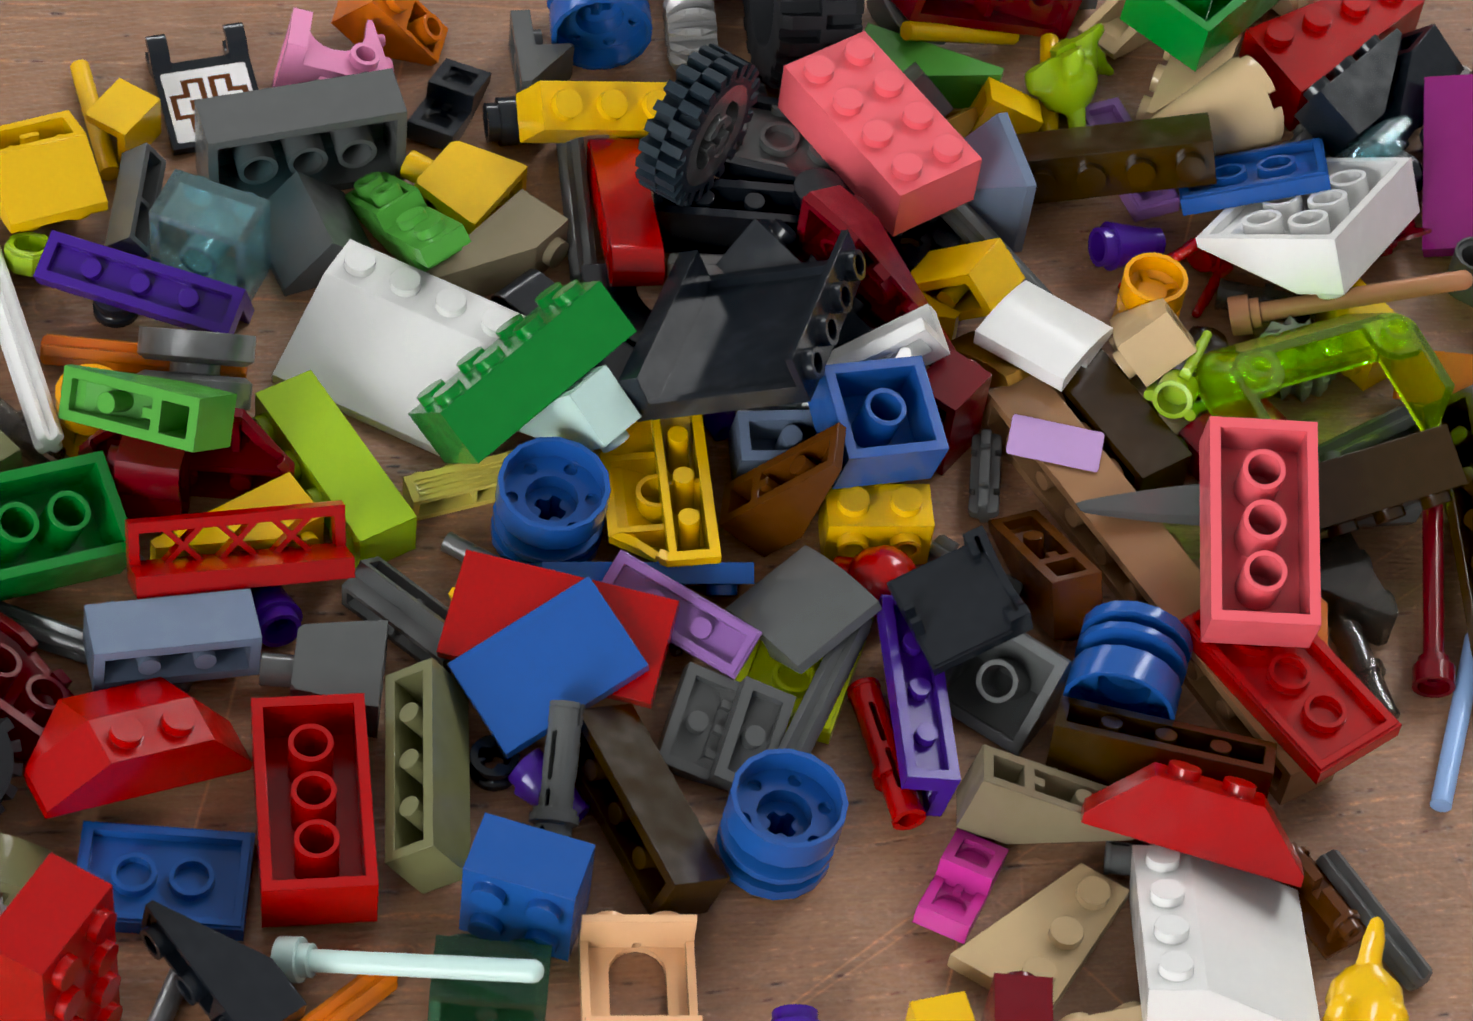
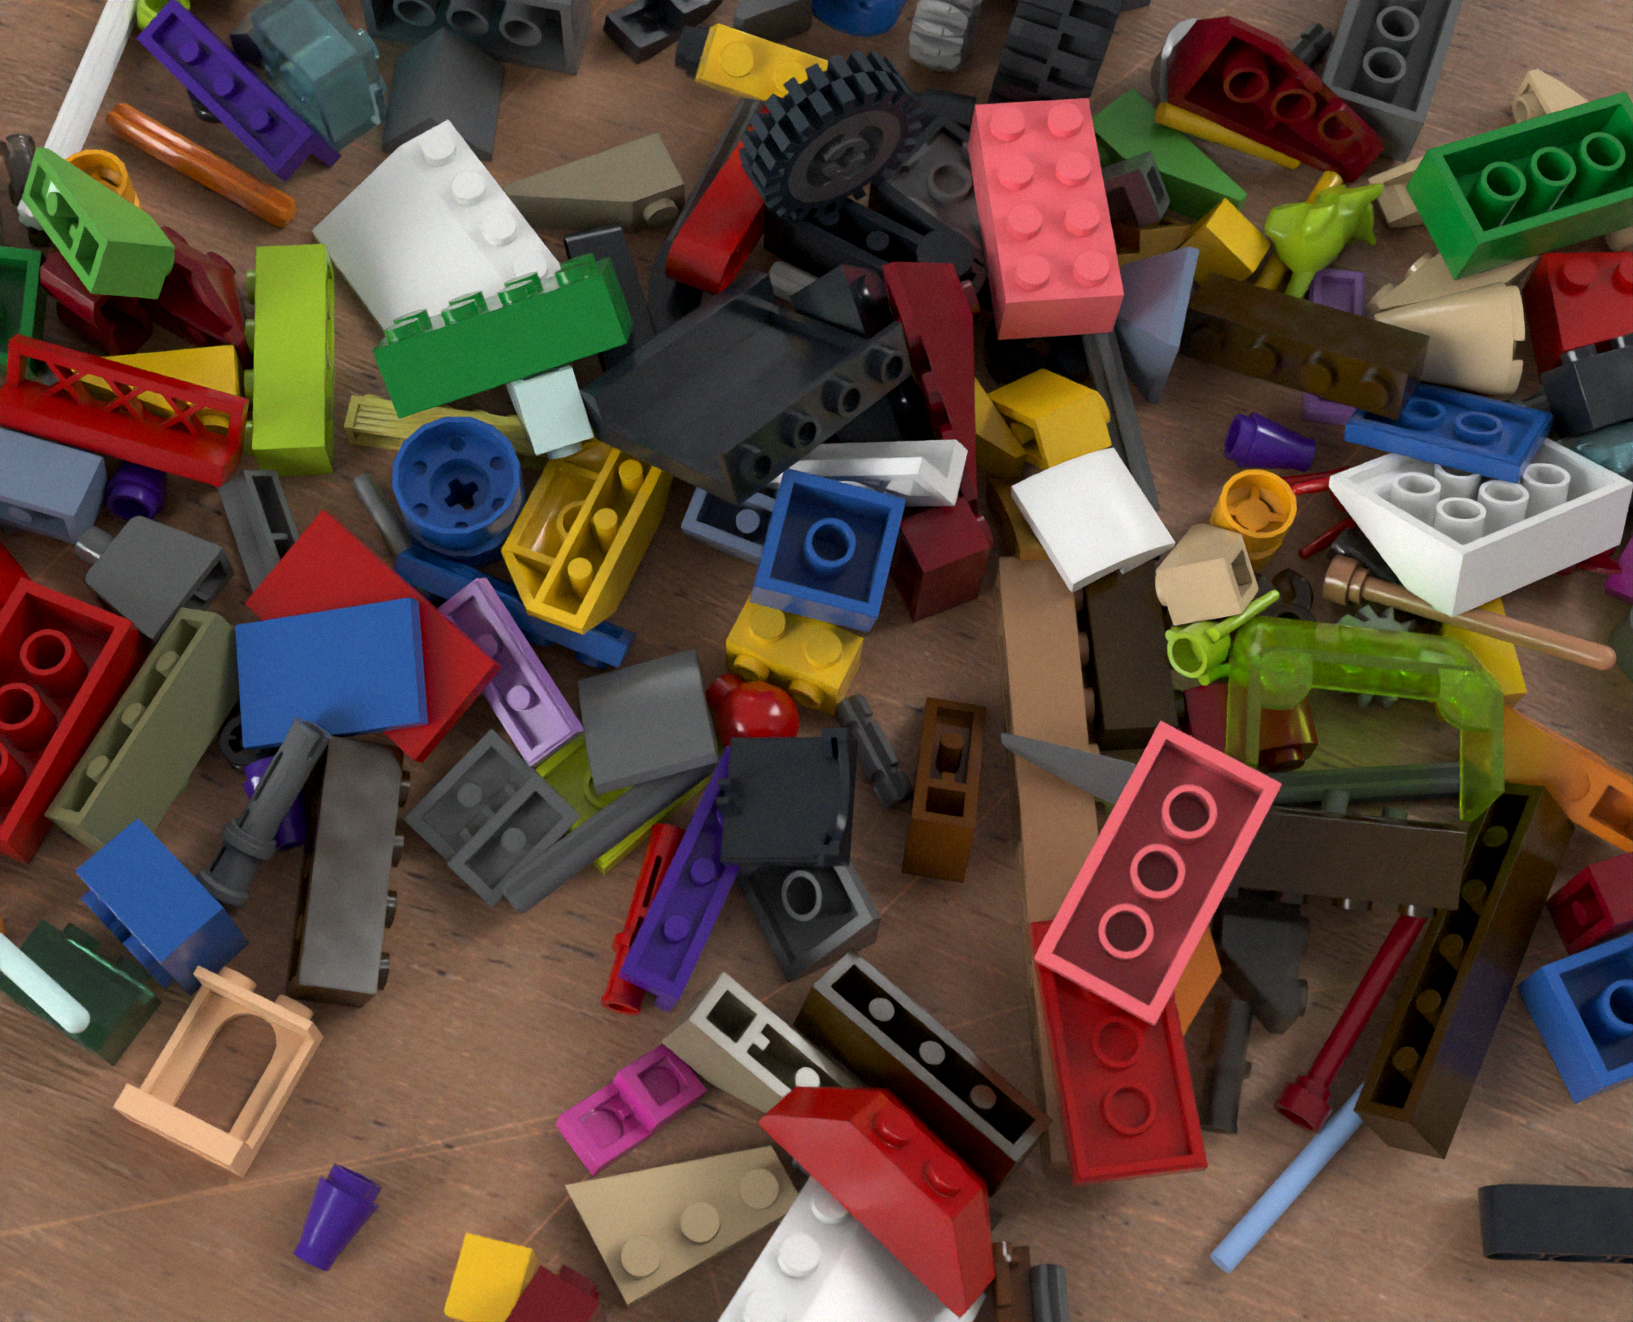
camera: 30 degrees right, 15 degrees up
(198, 358) = (208, 197): flat silver wheel -> none
(404, 222) = (523, 121): bright green slope -> none
(465, 181) = (613, 104): yellow torso -> none
(780, 497) = (693, 582): reddish brown slope -> none
(781, 823) = (456, 921): blue wheel -> none
(985, 476) = (952, 645): dark grey axle -> none
(1055, 443) = (1033, 648): lavender sticker -> none
(1131, 658) = (948, 948): blue wheel -> none

